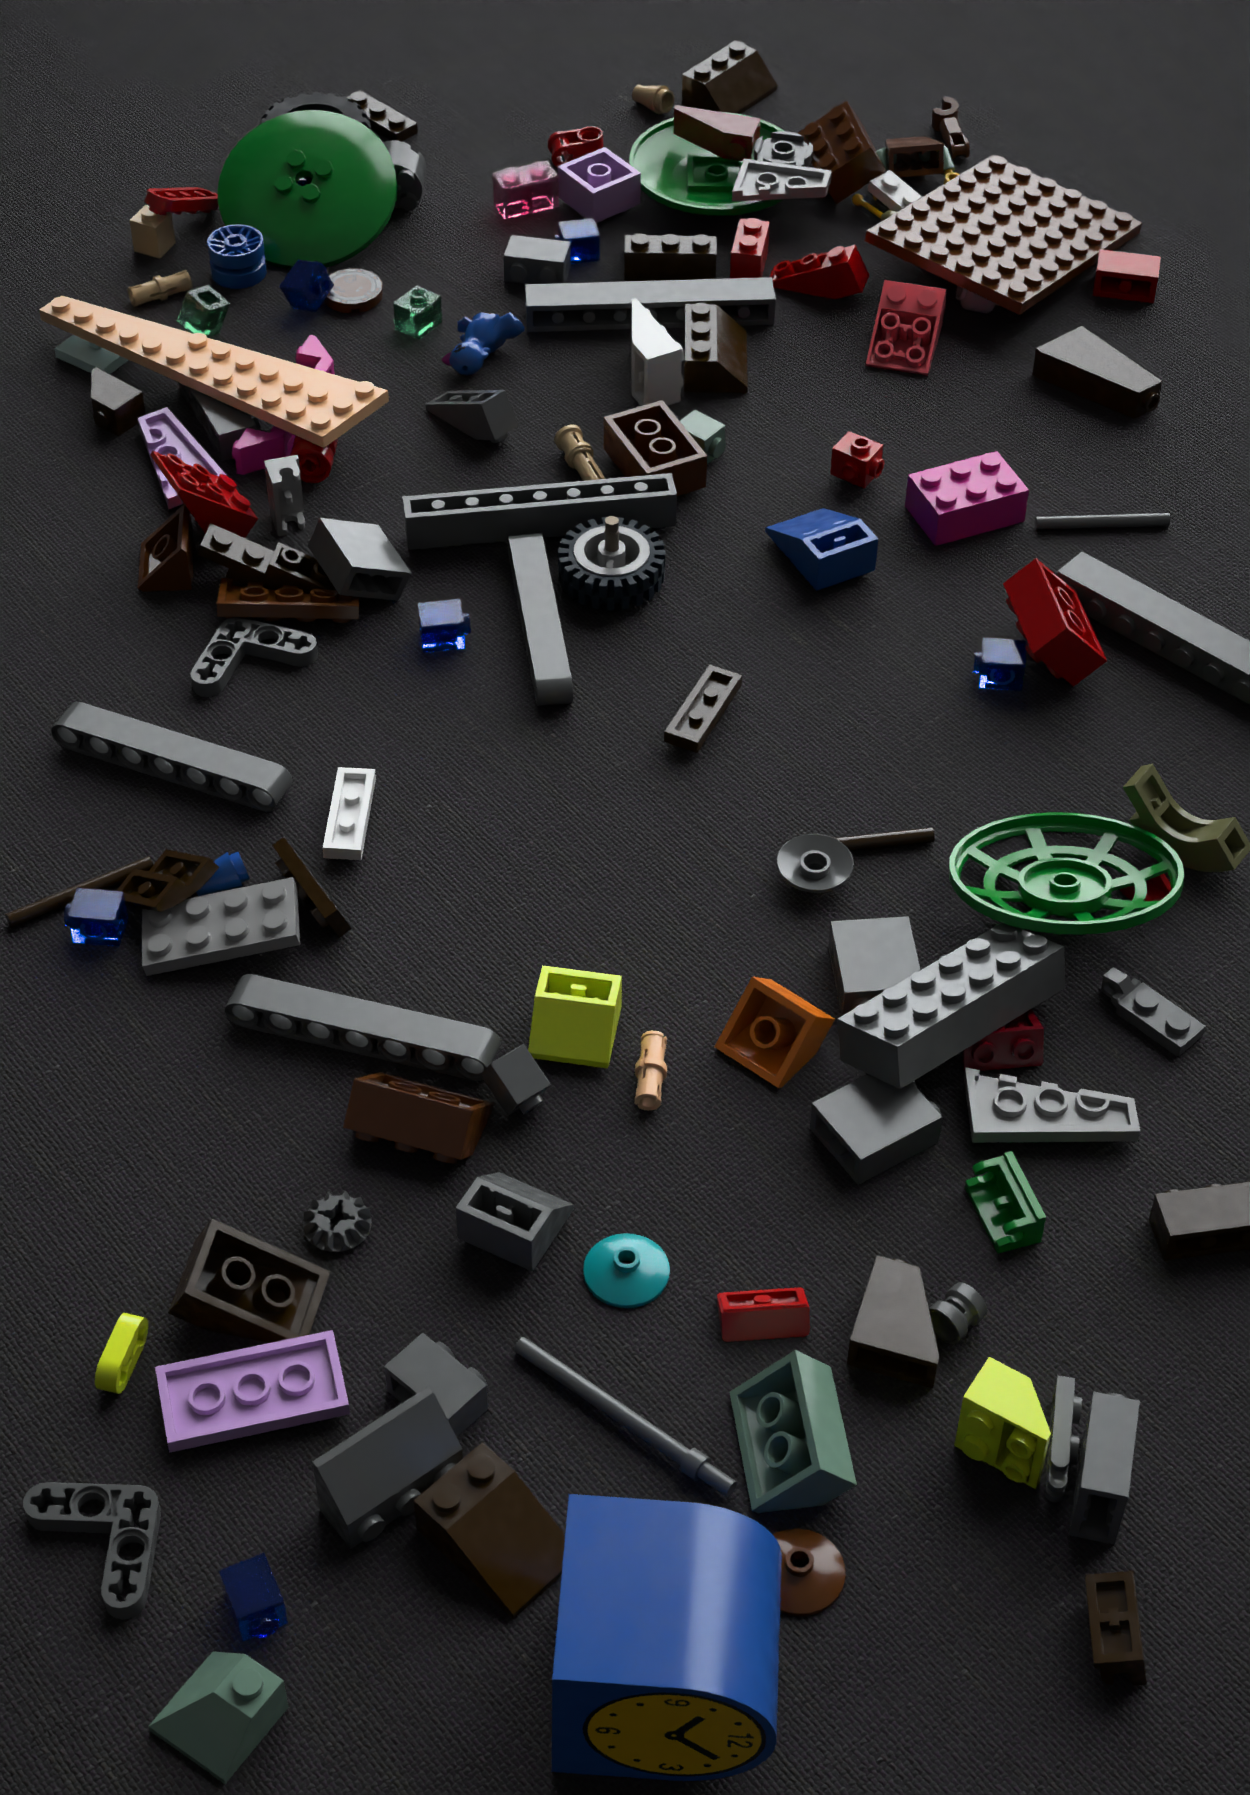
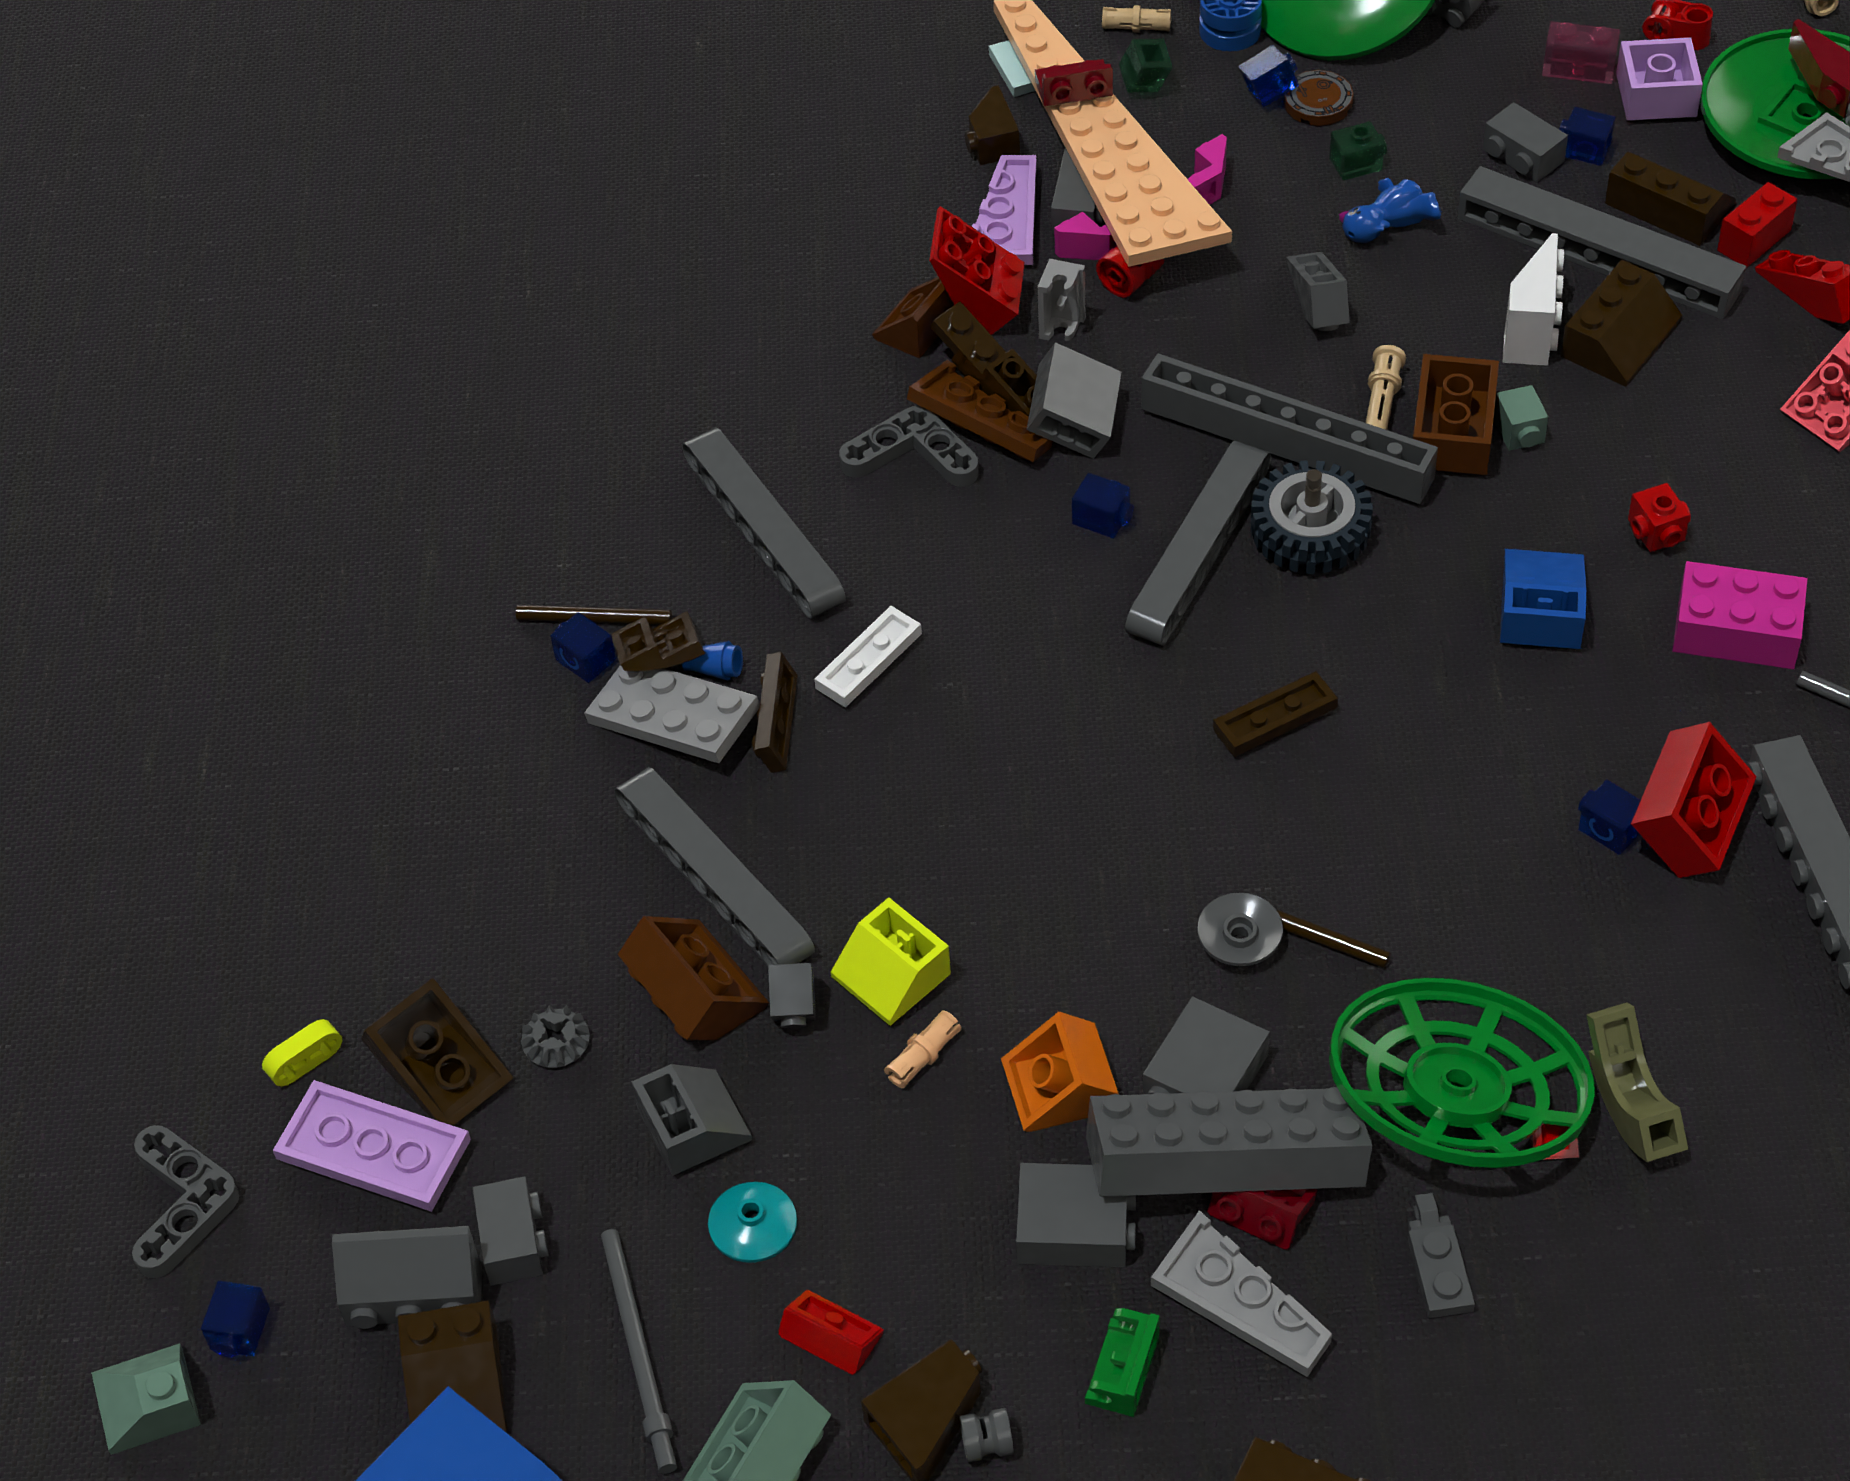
camera: 40 degrees right, 5 degrees up
(169, 334) = (1074, 82): none -> dark red bracket

